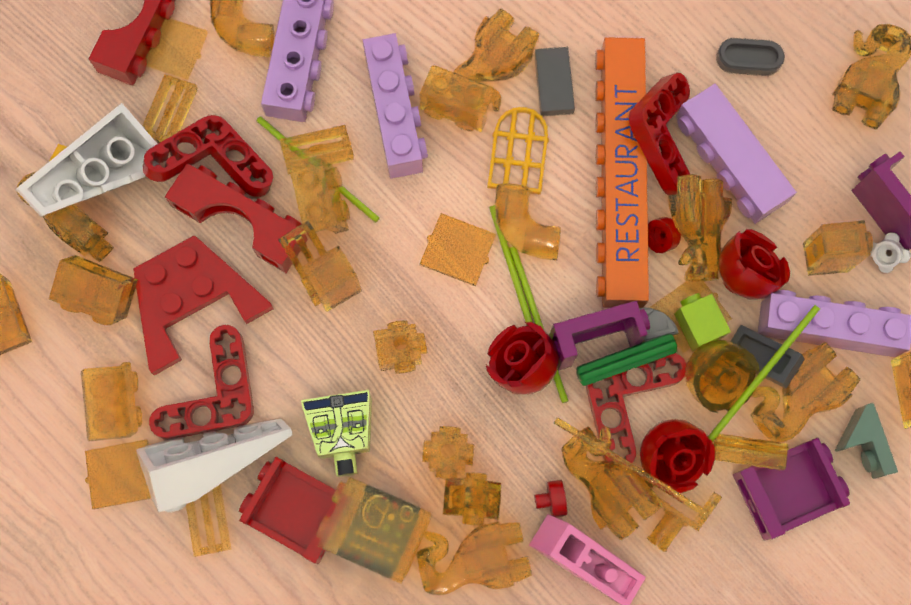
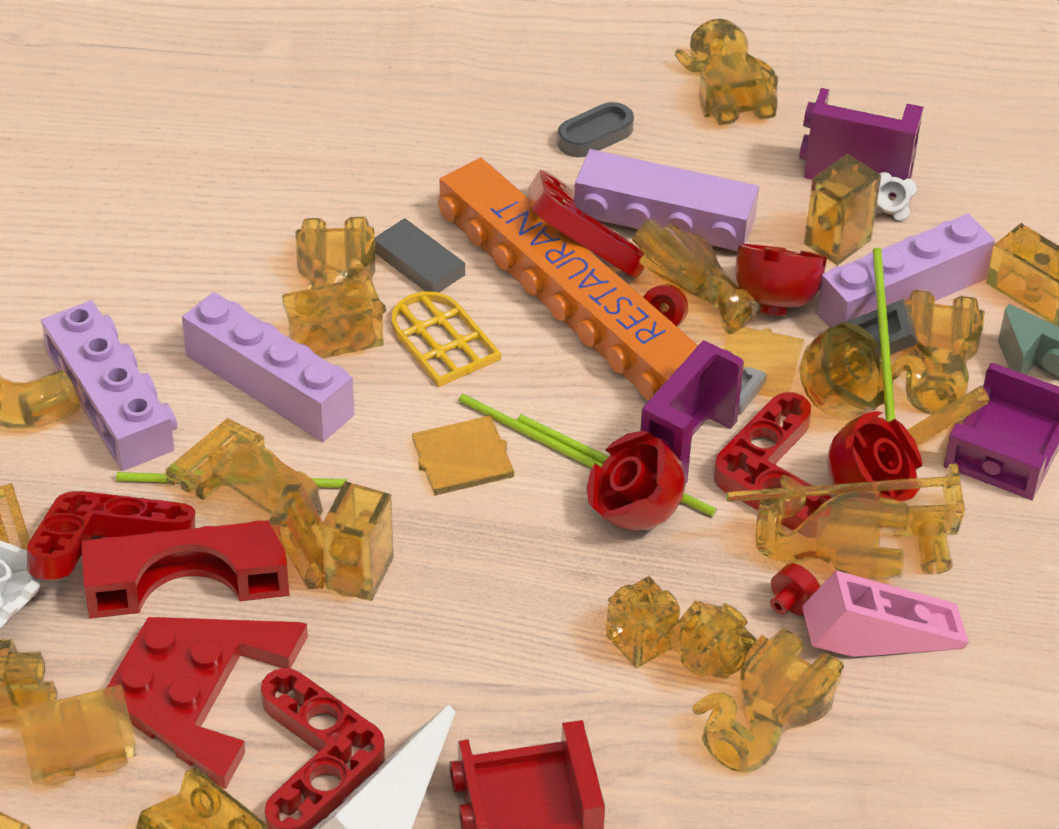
camera: 40 degrees left, 30 degrees down
(340, 427) = (498, 680): torso -> none
(374, 529) = (645, 719): clear yellow slope -> none
(399, 334) = (491, 563): clear yellow brick -> none
(519, 227) = (514, 388): clear yellow cylinder -> none
(626, 359) = (739, 422): green axle -> none
(701, 320) = (778, 343): lime brick -> none

